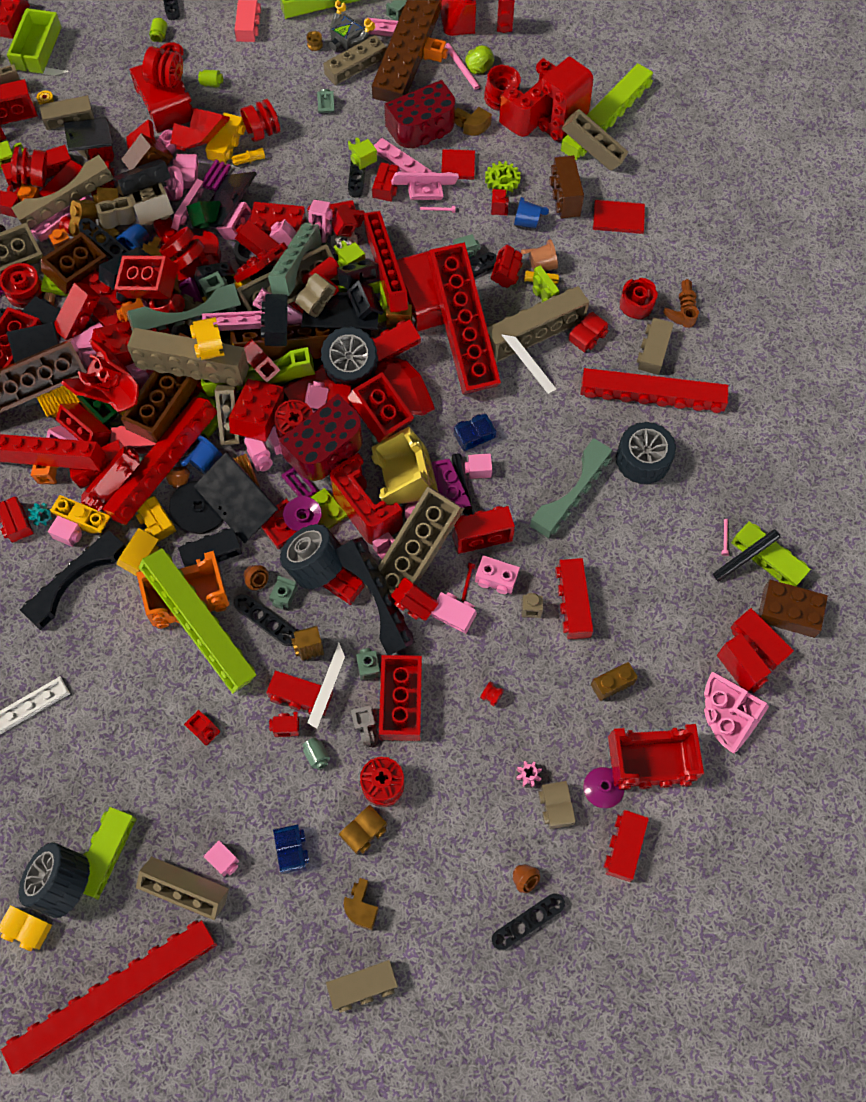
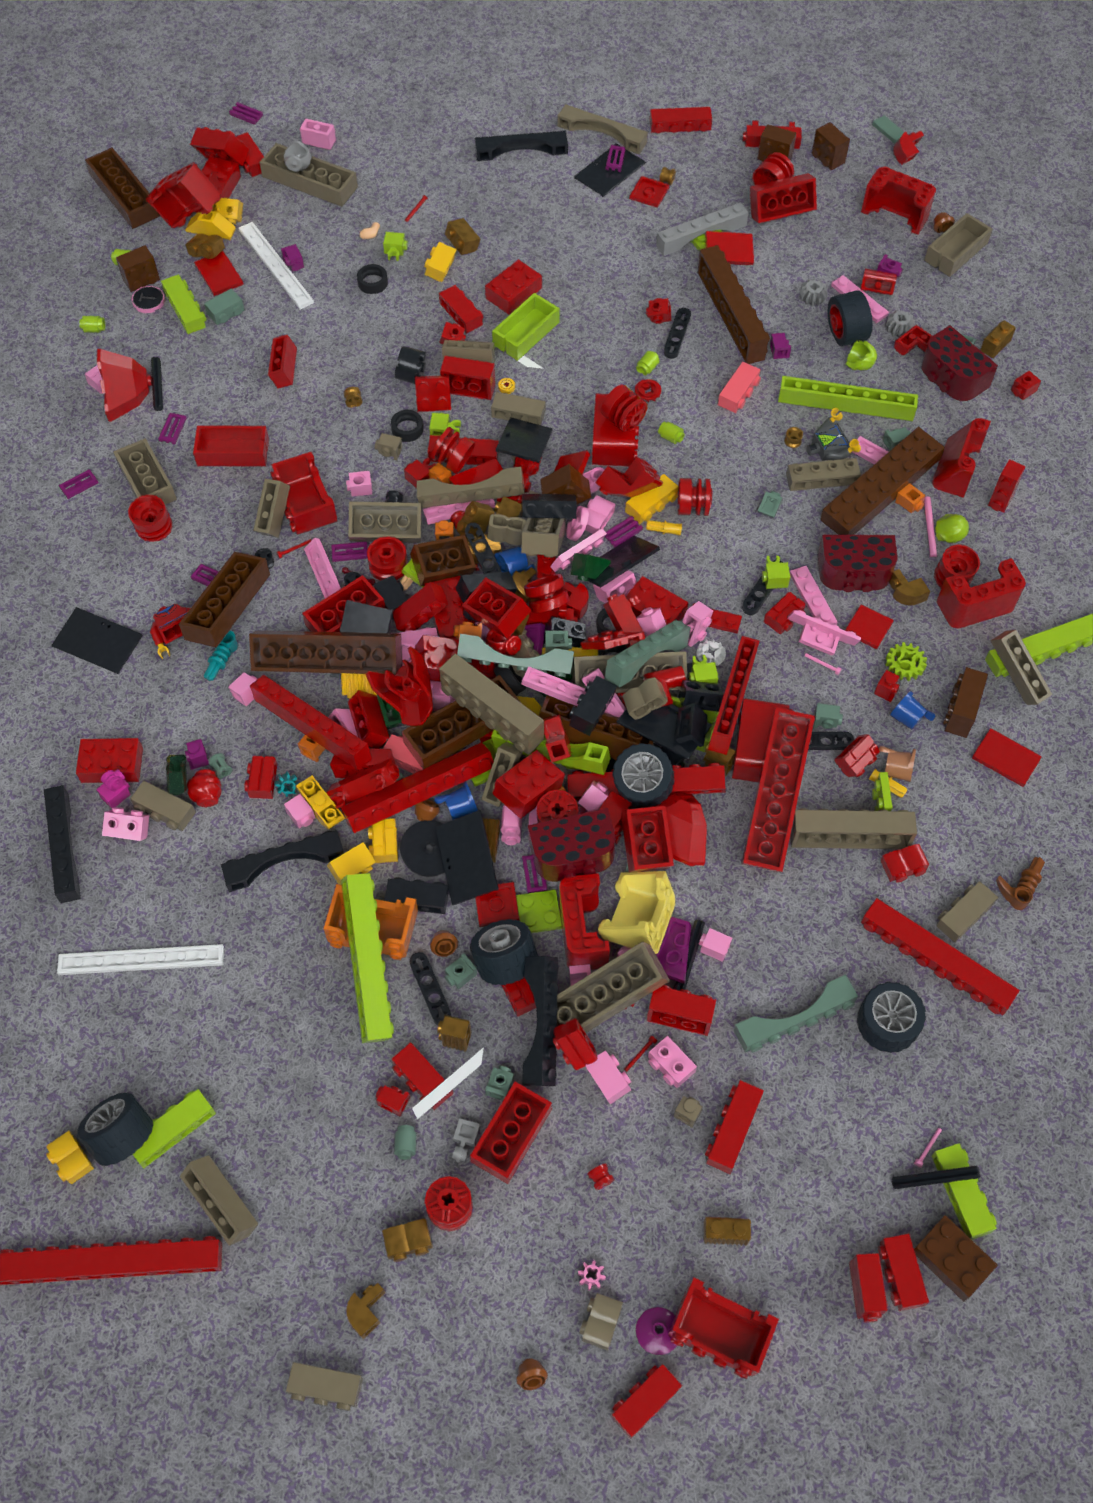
camera: 30 degrees right, 5 degrees down
(202, 727) = (318, 1060): red bracket -> none
(207, 338) = (512, 697): yellow brick -> none
(222, 859) = (267, 1193): bright pink brick -> none
(290, 848) = (332, 1219): clear blue brick -> none
(298, 507) = (521, 897): magenta dish -> none
(346, 220) = (721, 635): red brick -> none
(474, 432) = (730, 907): clear blue brick -> none
(526, 919) = (510, 1422): black beam -> none
(530, 363) = (823, 866): white sticker -> none
(571, 89) = (1018, 606): red windscreen -> none
(638, 298) = (976, 853): red brick -> none
(731, 711) = (829, 1329): bright pink brick -> none

